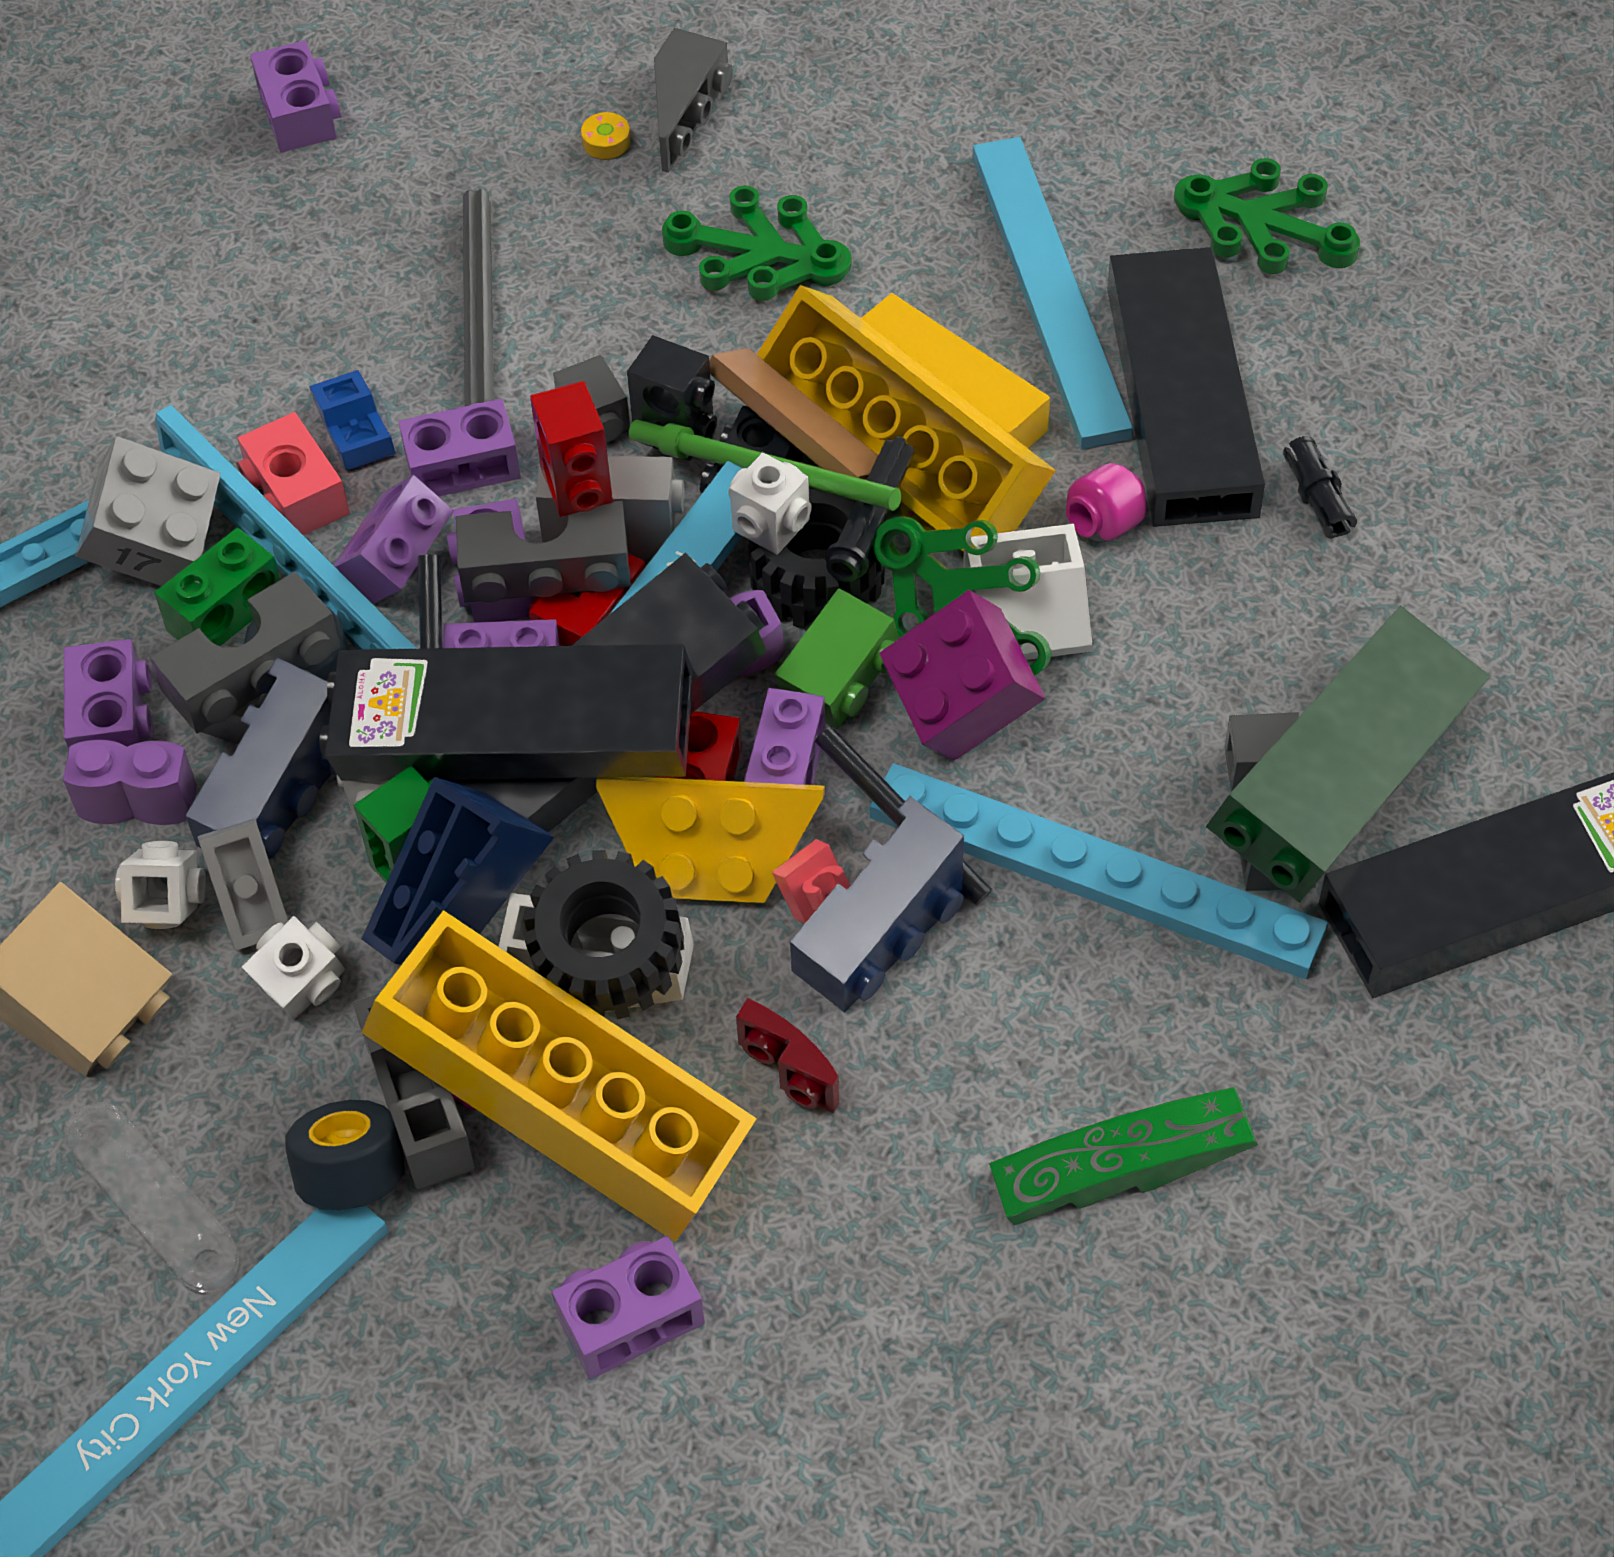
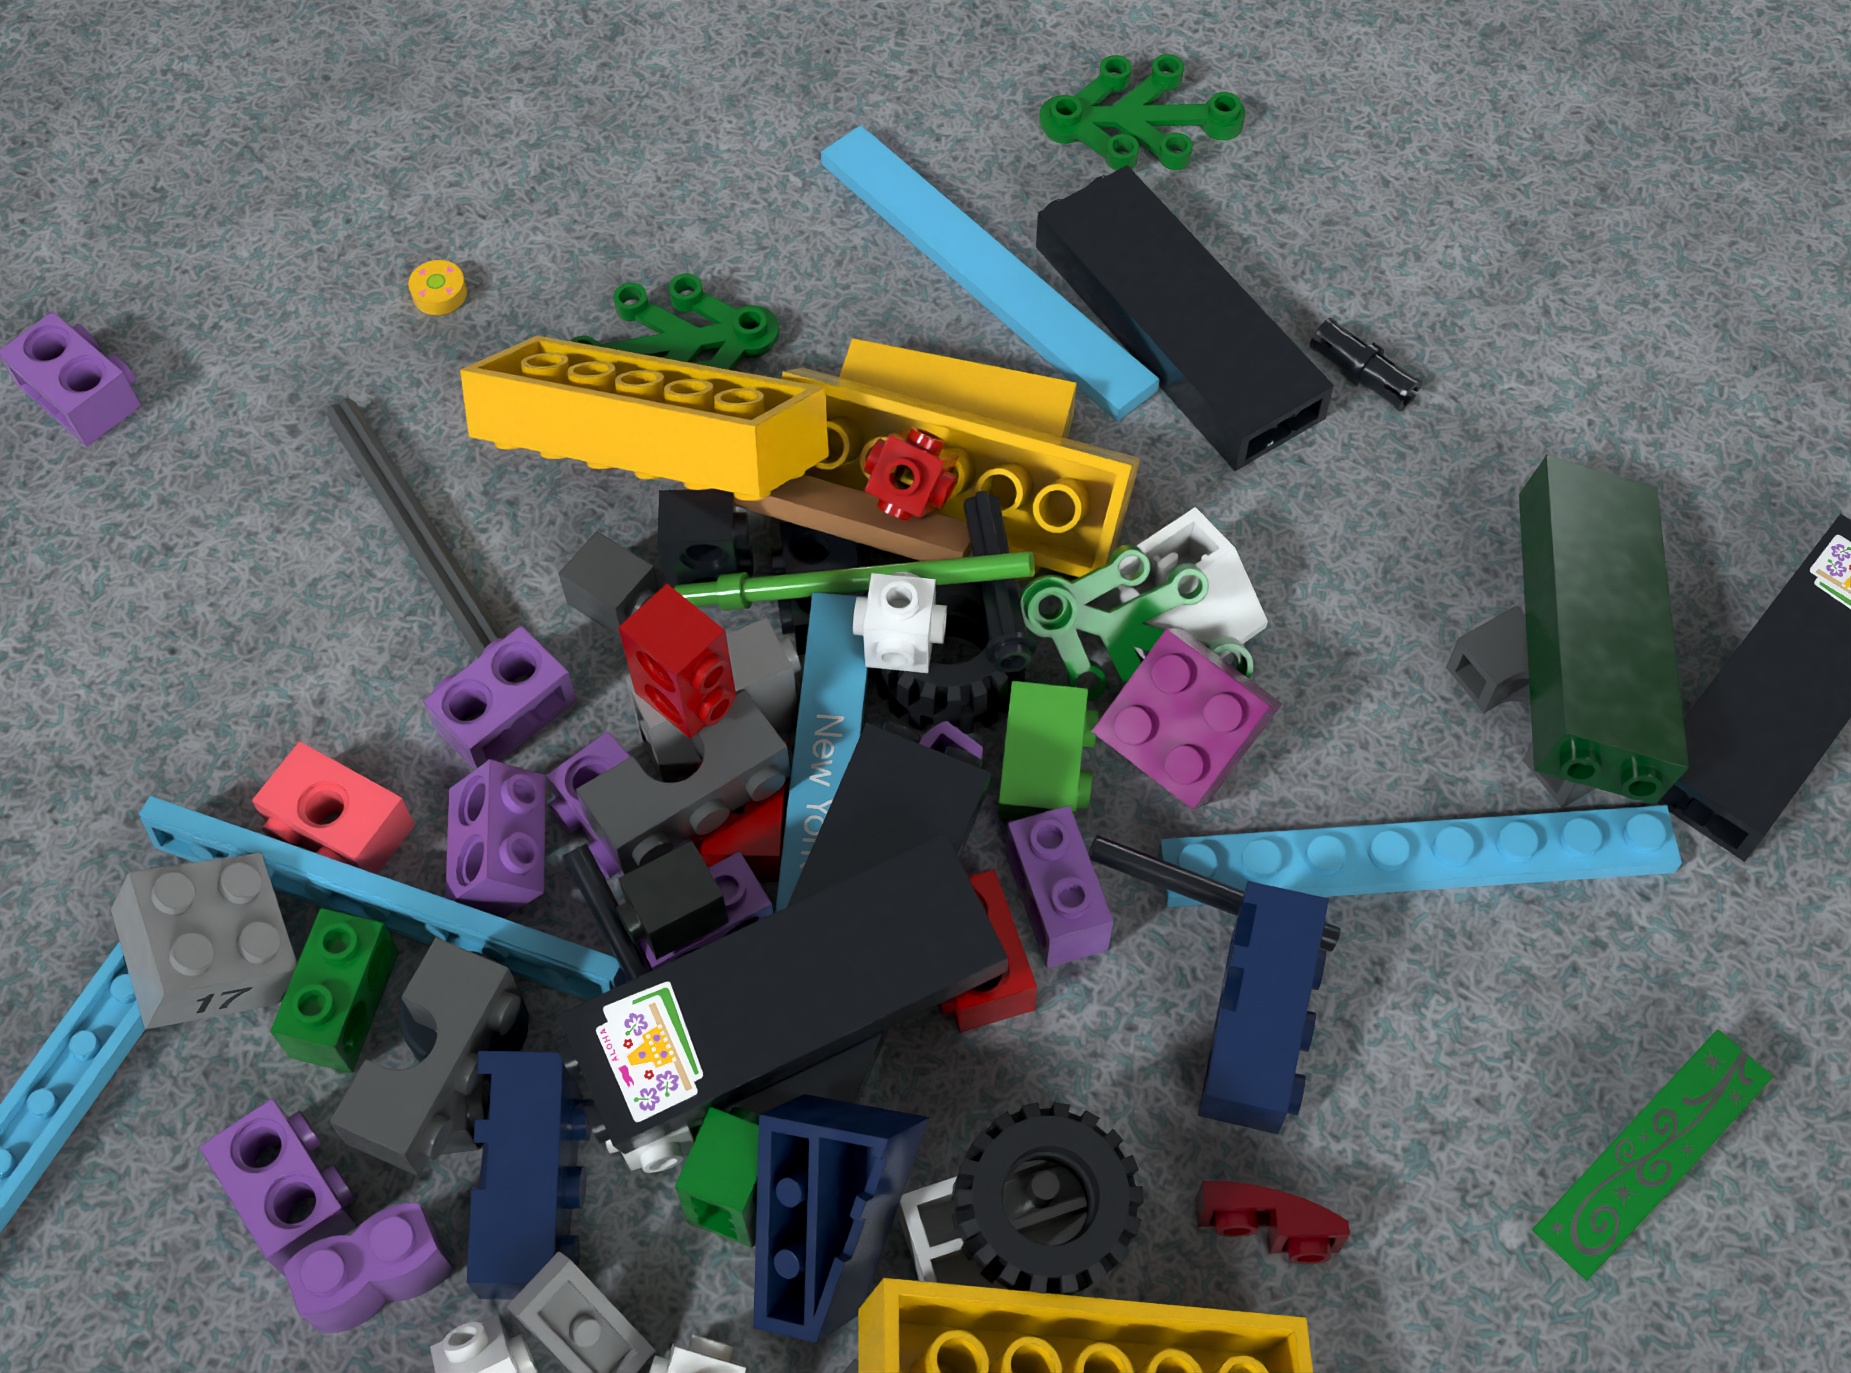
camera: 30 degrees left, 5 degrees up
(352, 420) = (355, 717): blue slope -> none
(474, 615) = (671, 901): none -> pearl dark grey brick
(683, 280) = (647, 415): none -> yellow brick
(687, 81) = (491, 205): dark grey slope -> none
(708, 833) = (1049, 1014): yellow wing -> none
(809, 879) = (1170, 1011): coral tile -> none
(851, 399) = (931, 471): none -> red brick
(1106, 502) = (1189, 467): dark pink head -> none

